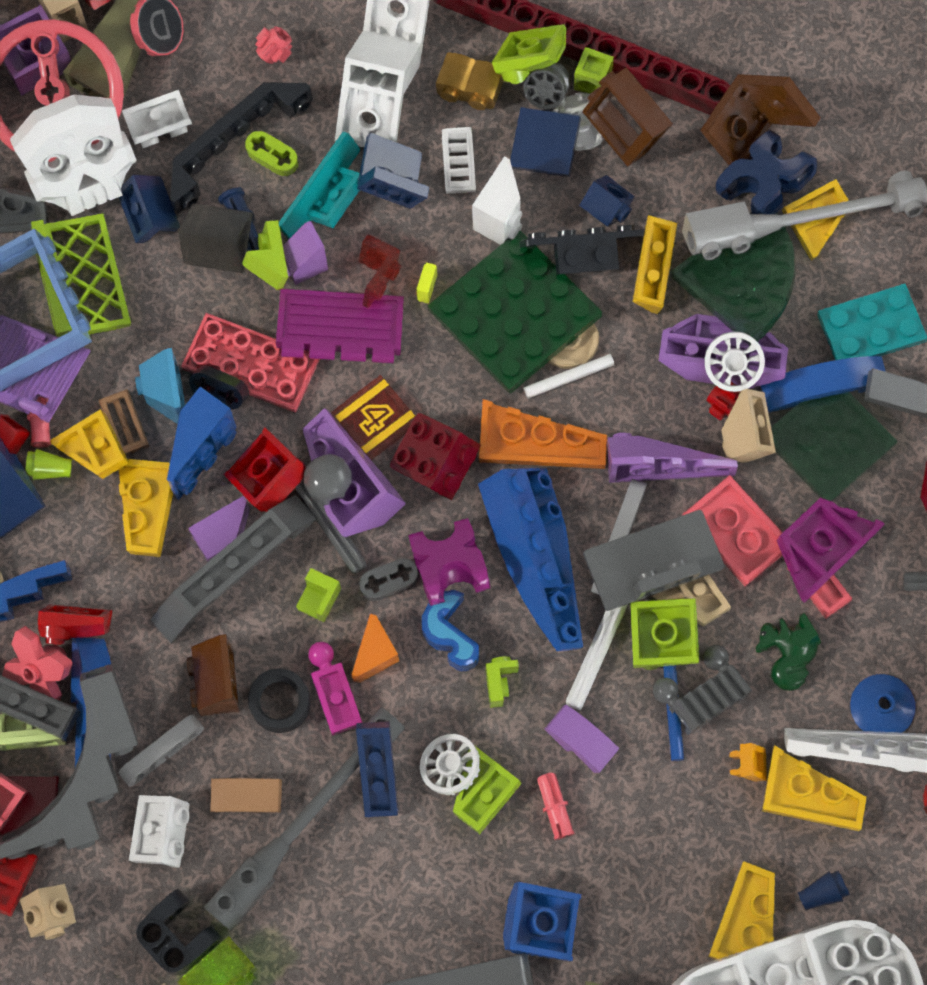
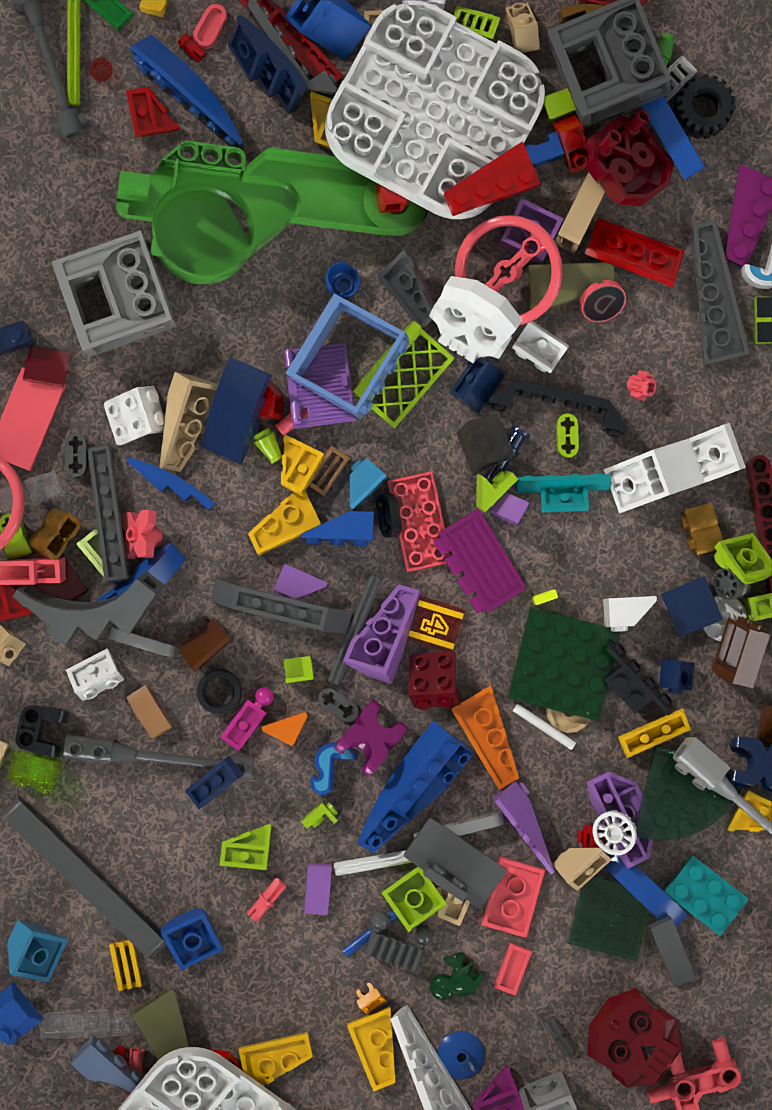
camera: 50 degrees right, 15 degrees up
(63, 622) = (181, 535): red slope -> none
(266, 472) = (352, 585): red slope -> none
(327, 478) = (373, 627): dark grey hair -> none
(383, 259) = (542, 556): clear red bracket -> none
(391, 172) = (604, 523): bracket -> none
(449, 764) = (249, 820): white wheel -> none
(455, 141) = (645, 546): white slope -> none
(823, 543) = (537, 957): magenta wing -> none
(824, 891) = (322, 1092): dark blue cone -> none

